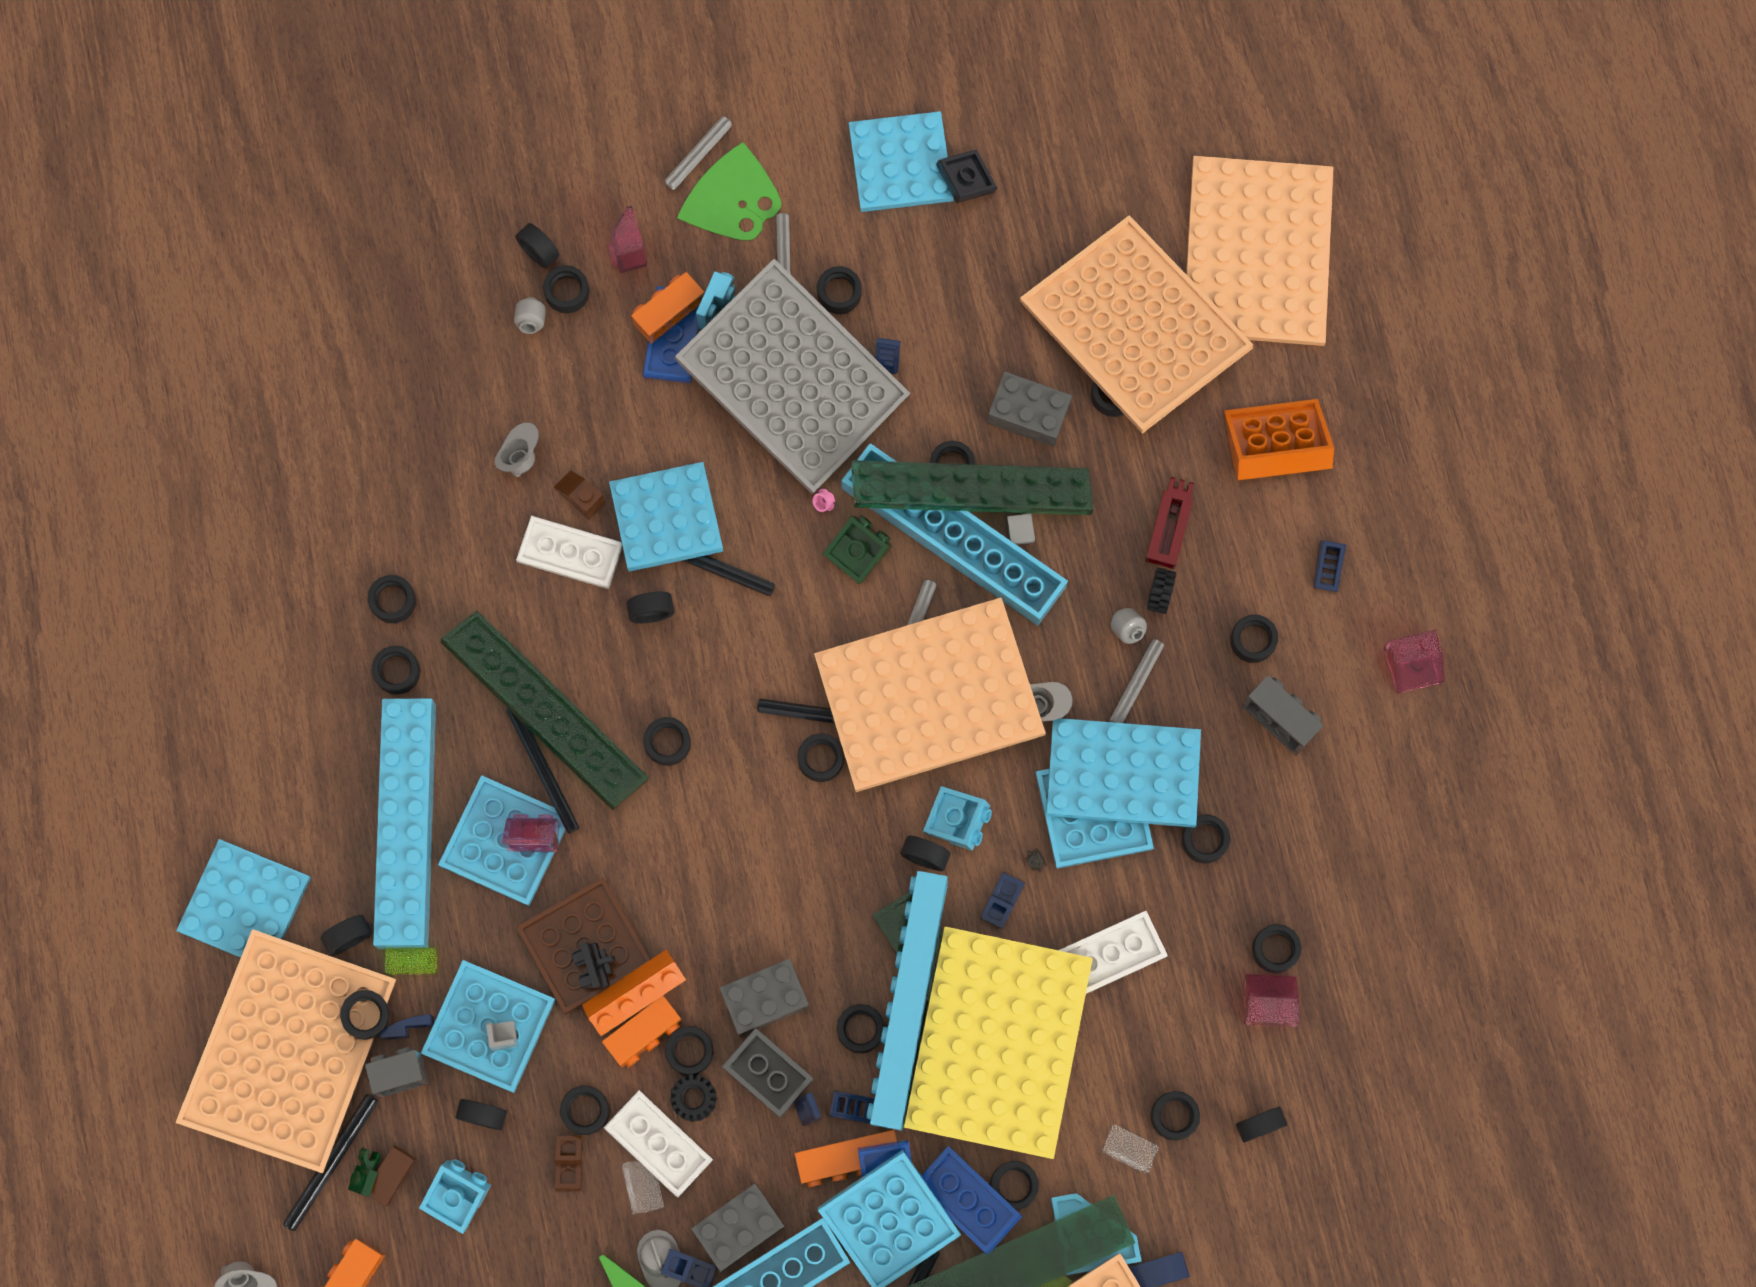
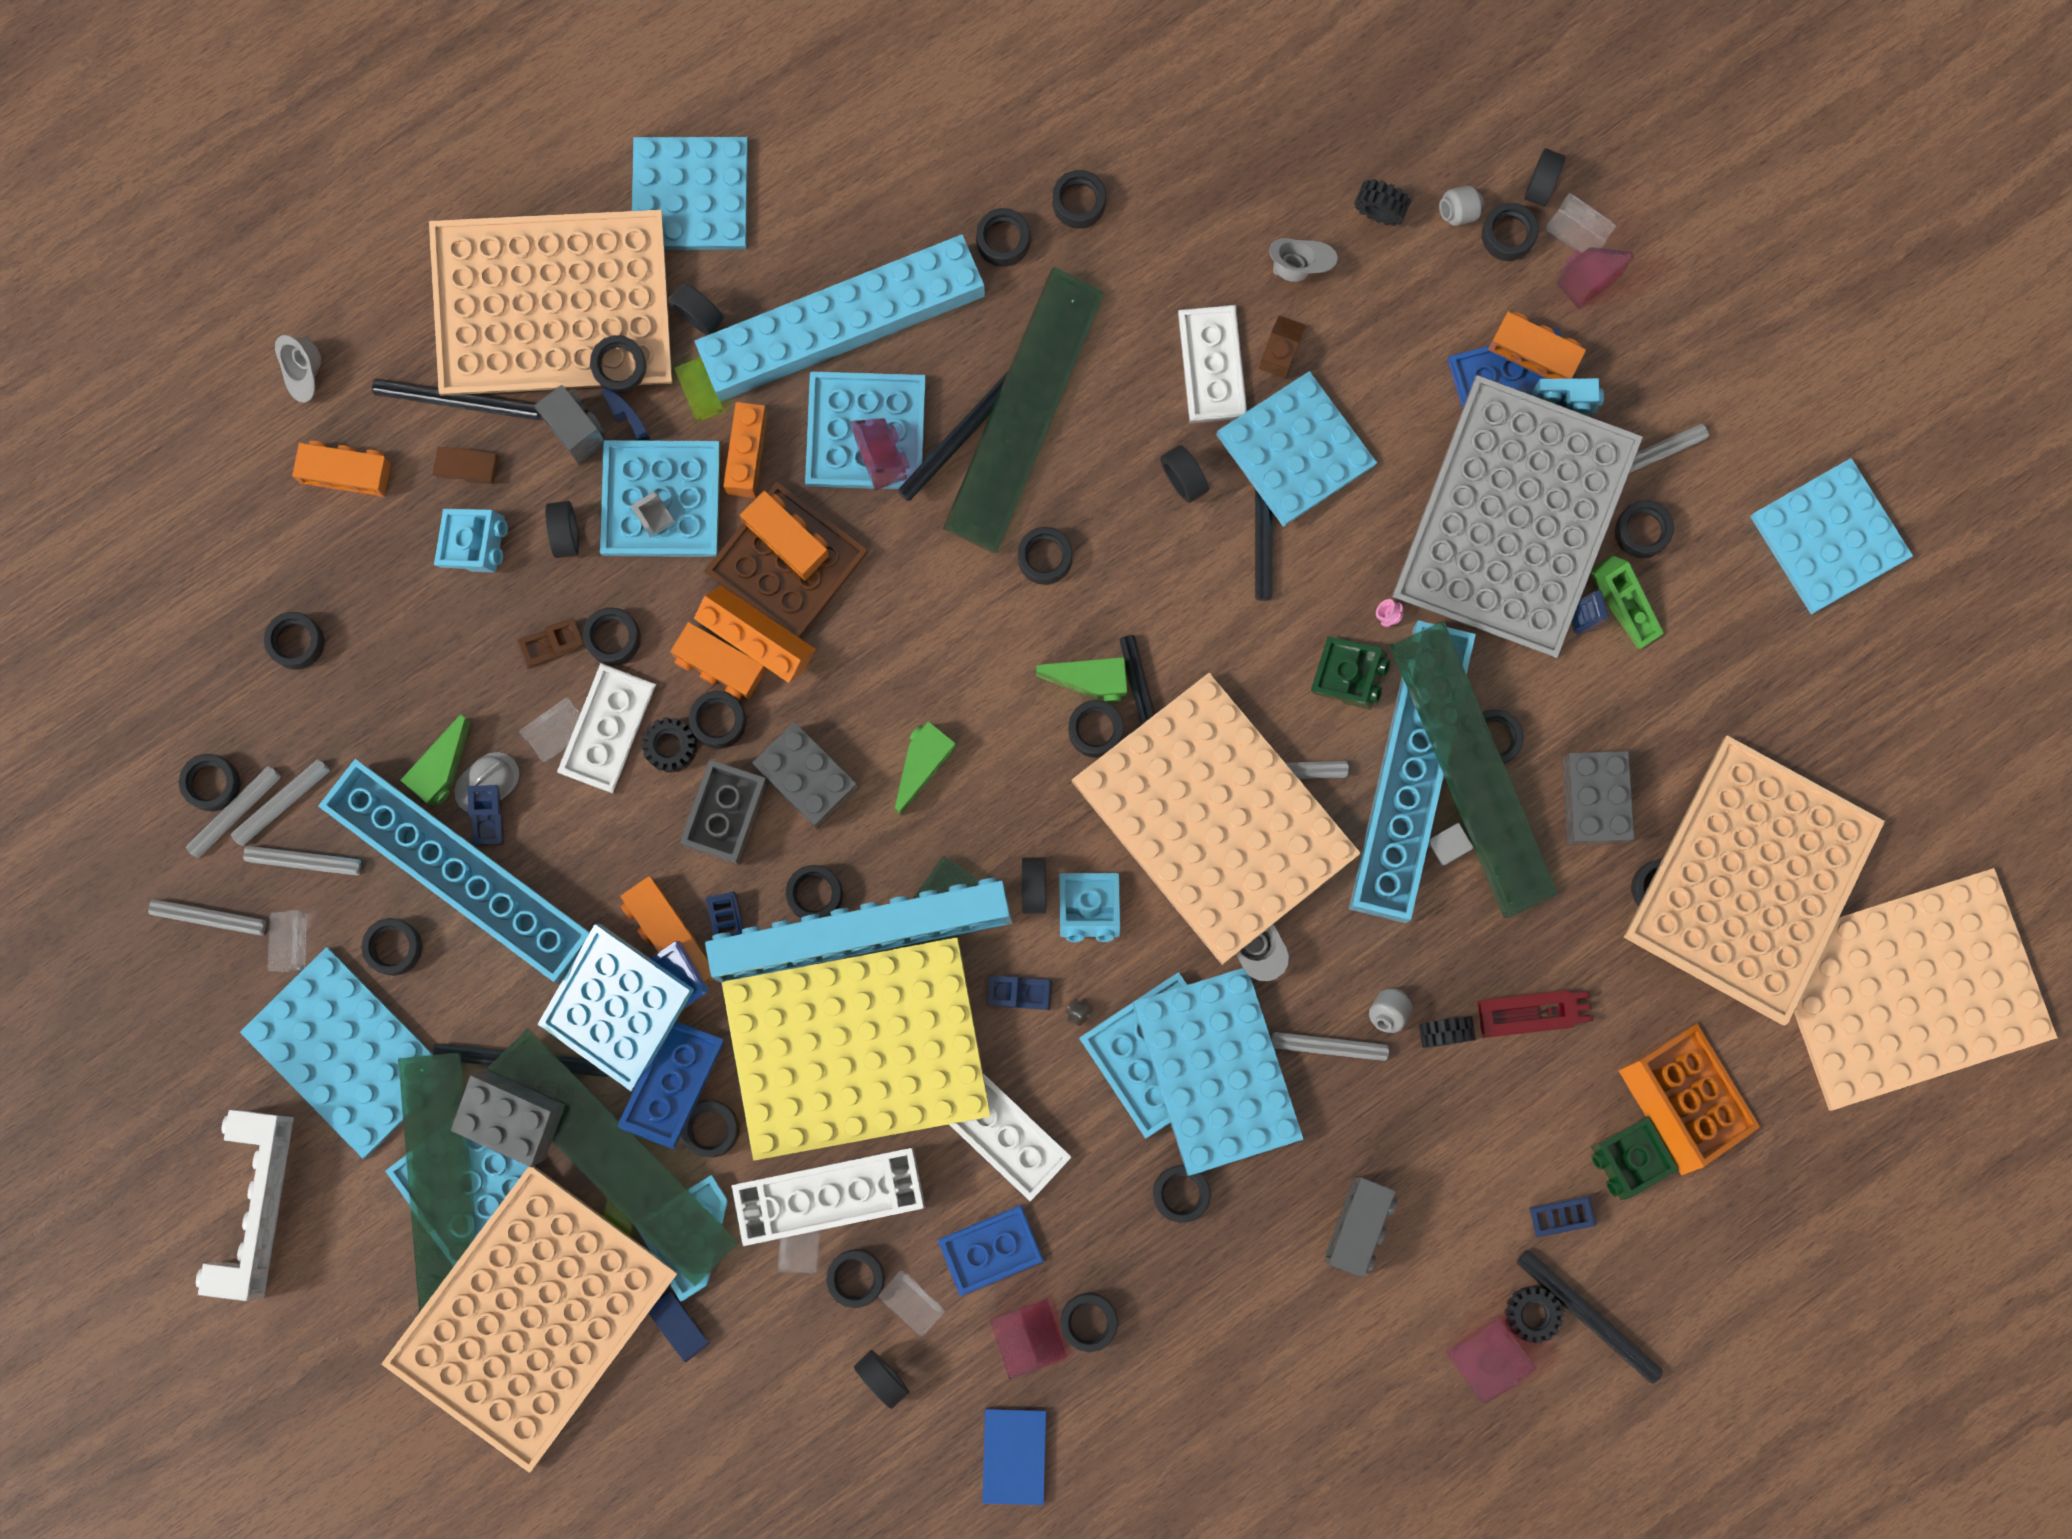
camera: 70 degrees right, 5 degrees up
(364, 1175) = (455, 438): dark green plate -> none
(479, 941) = (745, 450): none -> orange brick
(501, 371) = (1382, 202): none -> black tyre
(564, 935) = (785, 534): none -> orange brick
(585, 237) = (1580, 225): none -> clear panel
(597, 965) = (765, 581): black hips -> none
(698, 153) = (1736, 307): light grey axle -> none
(716, 196) = (1698, 349): bright green piece -> none
(738, 1228) = (549, 849): dark grey brick -> none
(781, 743) = (1093, 678): none -> bright green slope
(790, 901) = (924, 758): none -> bright green slope
(807, 1109) = (704, 873): dark blue slope -> none
(887, 324) = (1626, 600): none -> bright green slope
(966, 176) = (1846, 616): black plate -> none
(1106, 1109) = (828, 1196): none -> white plate
(1192, 1003) = (990, 1250): none -> blue tile
(1210, 1079) = (912, 1303): none -> clear panel
(1240, 651) = (1459, 1152): black tyre -> none
(1307, 497) = (1633, 1159): none -> dark green plate
(1356, 1047) = (1014, 1456): none -> blue tile
(1400, 604) = (1552, 1314): none -> black tyre
(1409, 578) = (1590, 1317): none -> black axle

